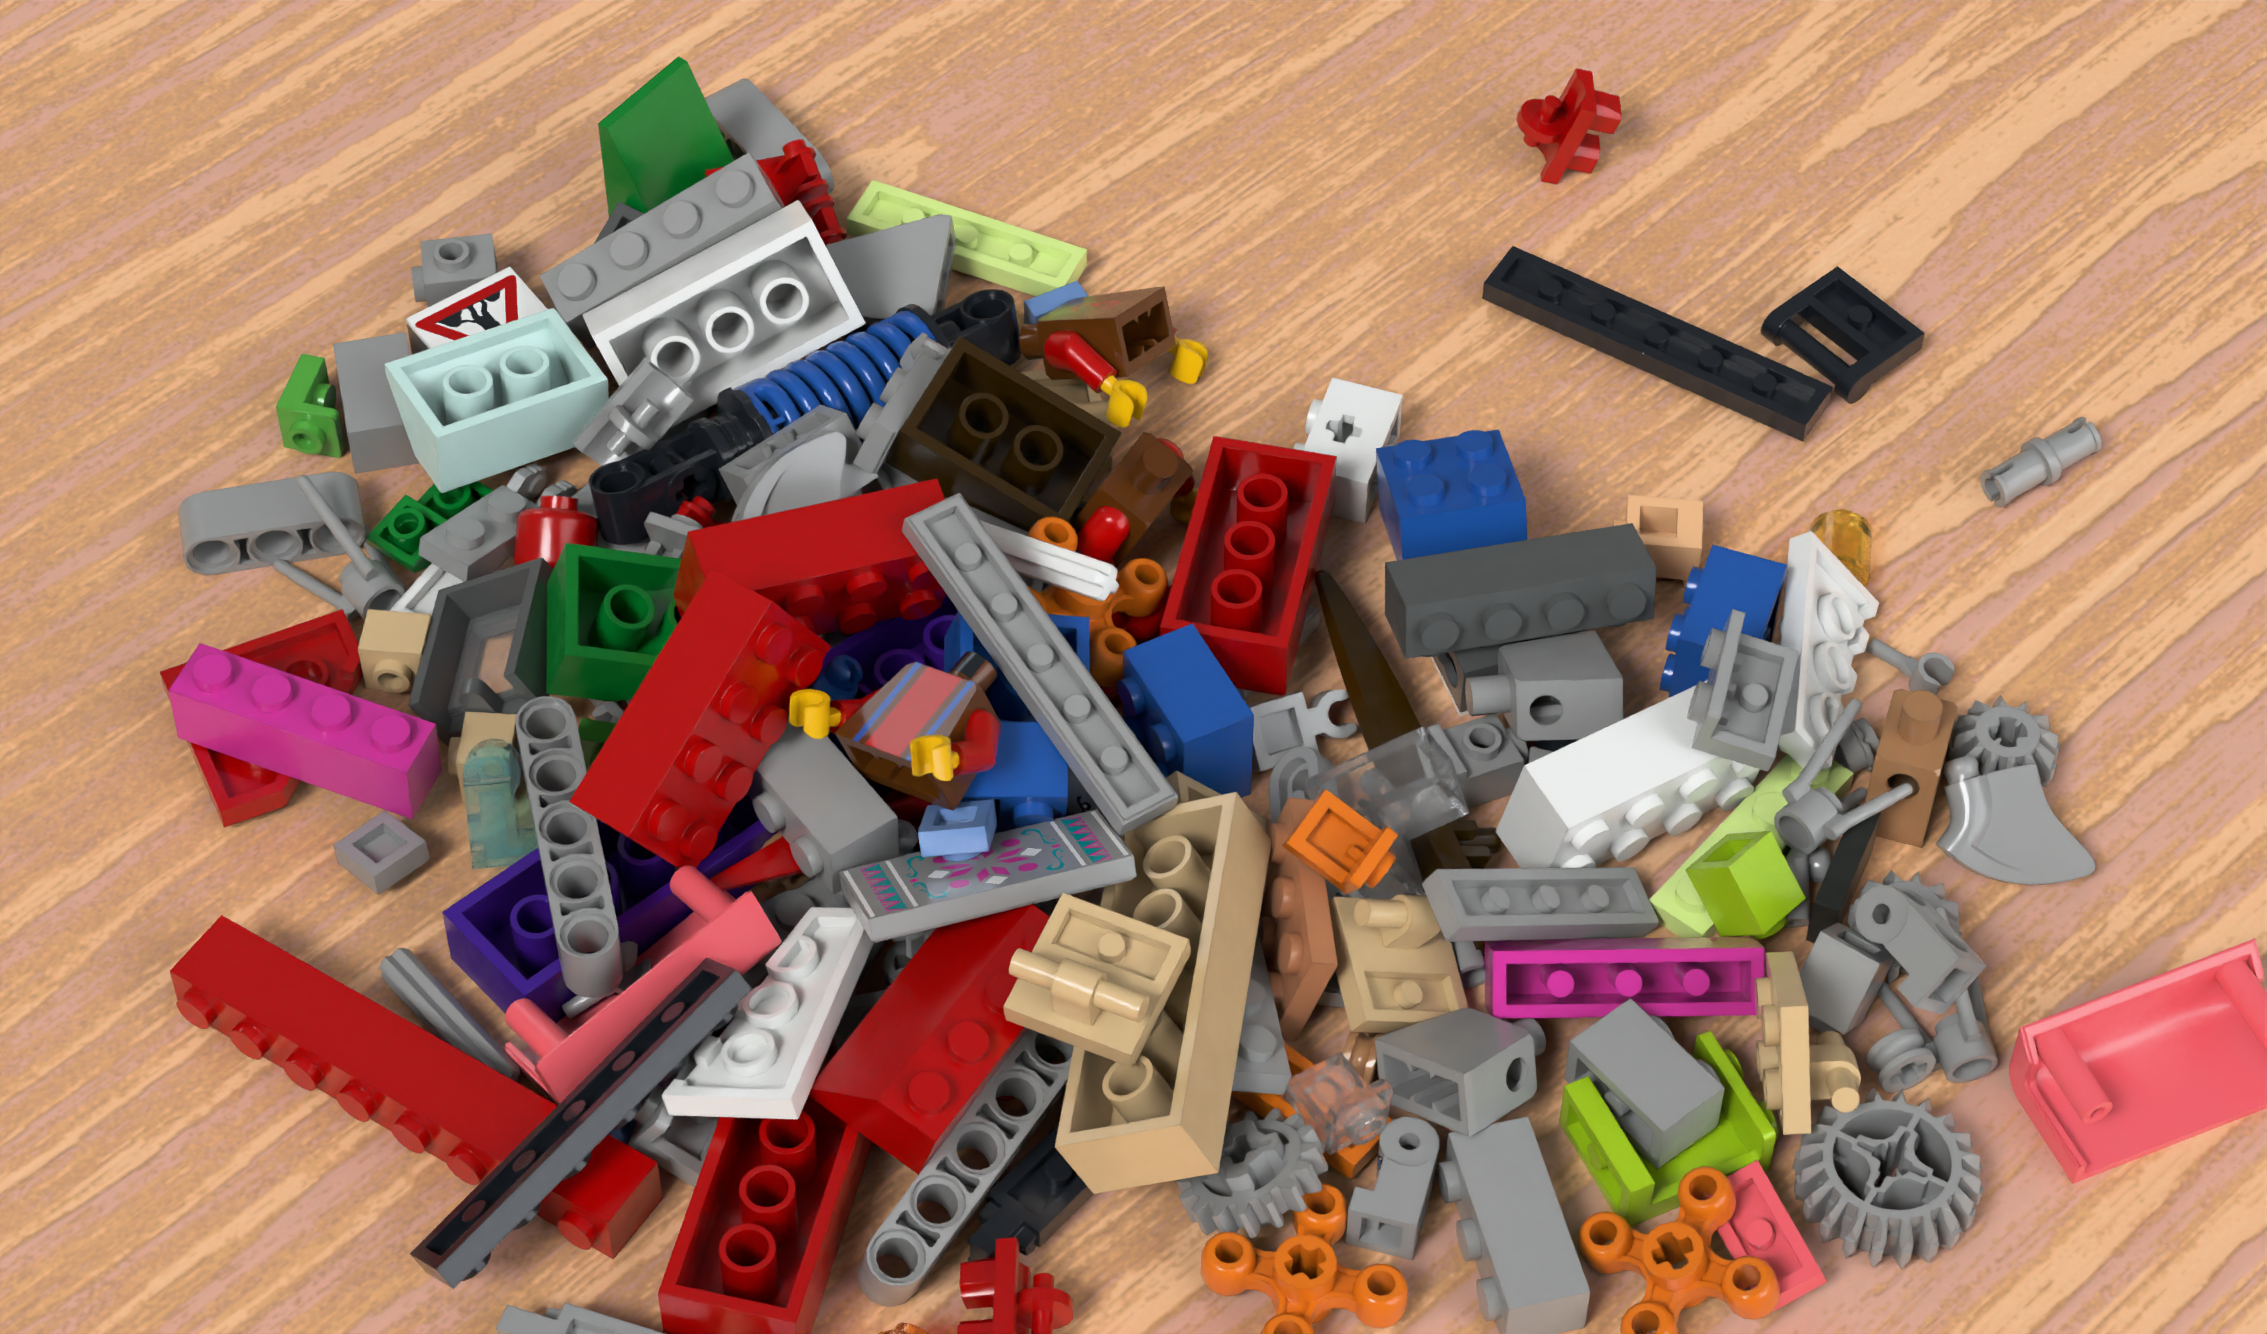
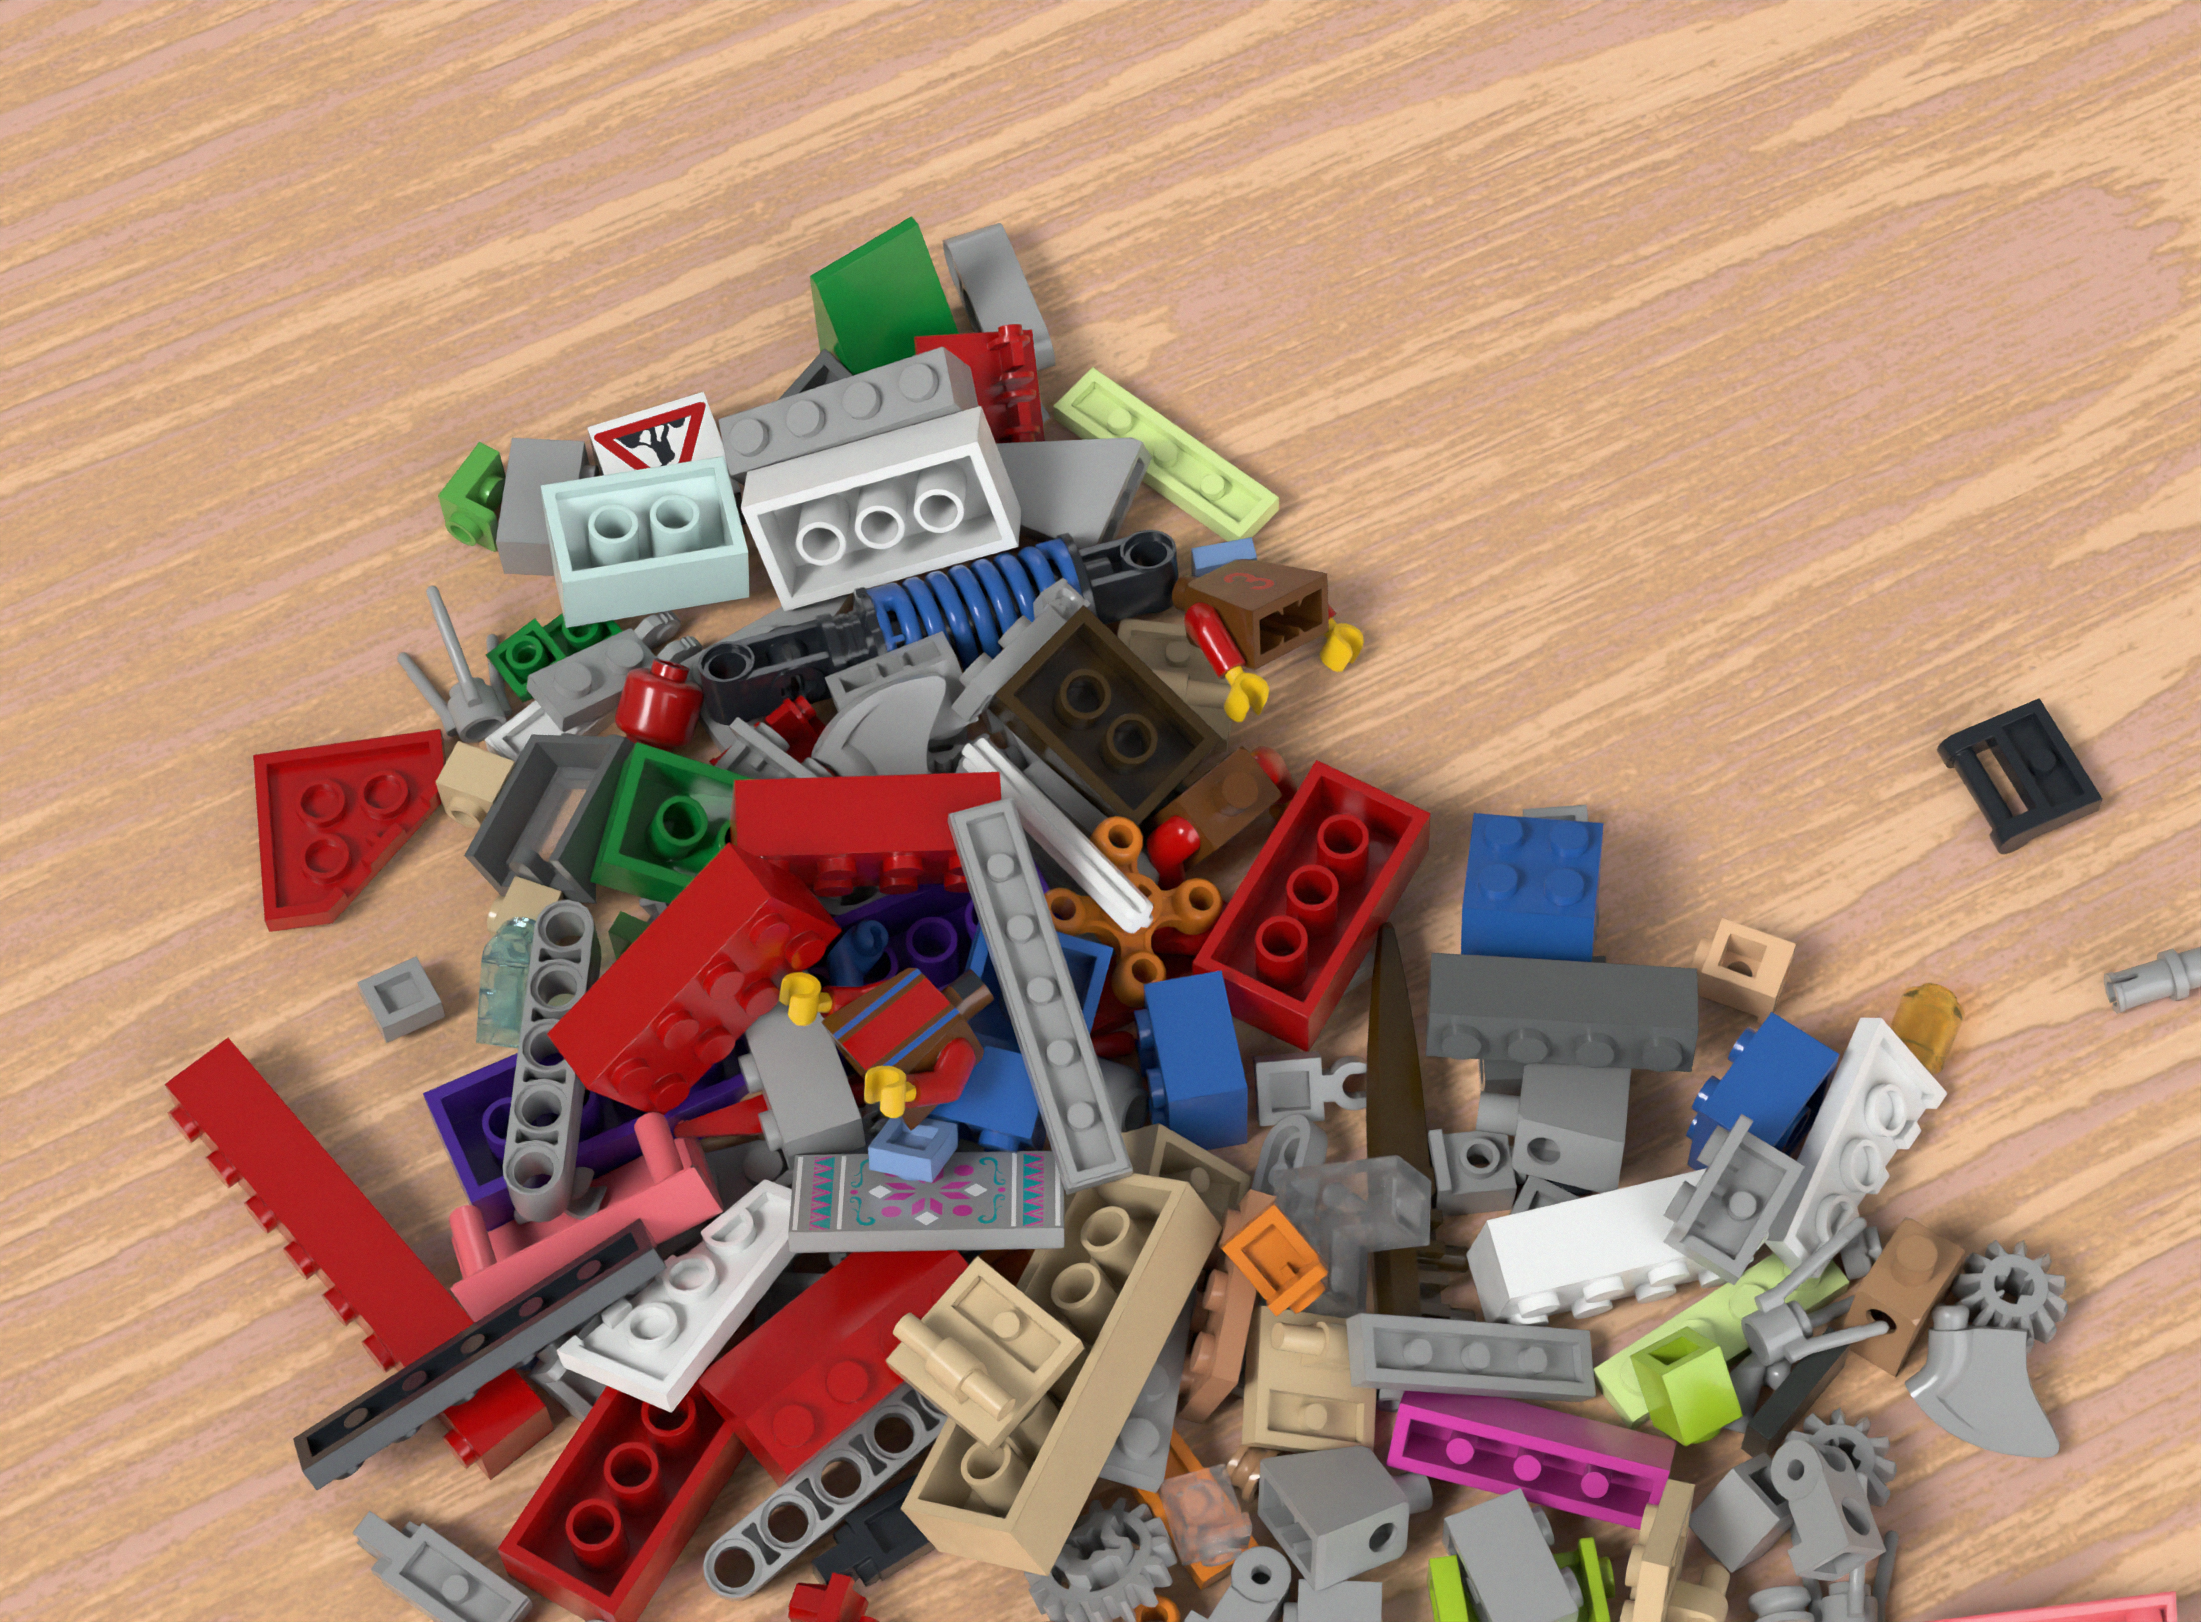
camera: 20 degrees right, 10 degrees up
(266, 522) = (395, 616): light grey beam -> none
(306, 730) = (359, 862): dark pink brick -> none
(442, 1012) = (412, 1193): light grey axle -> none
(452, 266) = (656, 376): light grey brick -> none
(634, 415) = (764, 596): light grey hips -> none
(1351, 426) = (1469, 773): white brick -> none
(1562, 123) = (1814, 472): red hips -> none
(1657, 343) = (1824, 741): black plate -> none
(1923, 674) = (1957, 1176): light grey hand -> none

